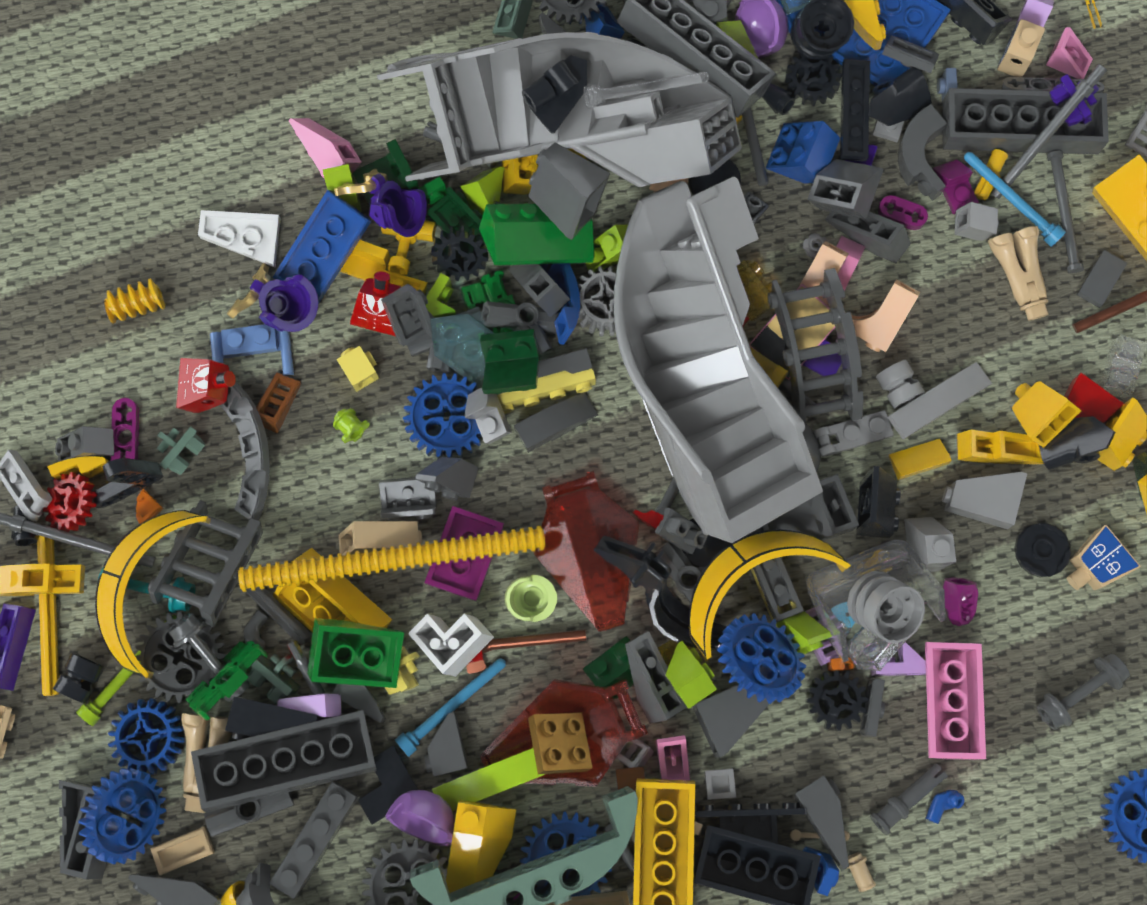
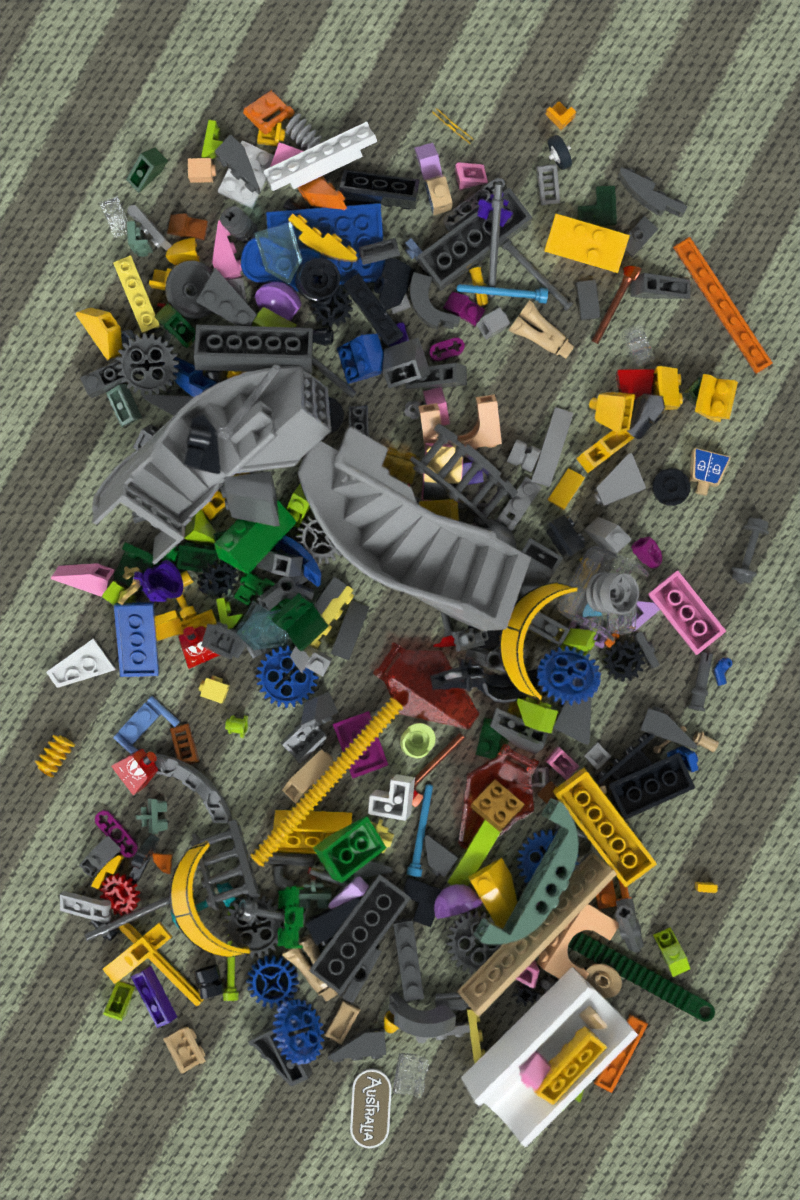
camera: 35 degrees left, 10 degrees up
(284, 304) = (145, 688): dark purple helmet -> none

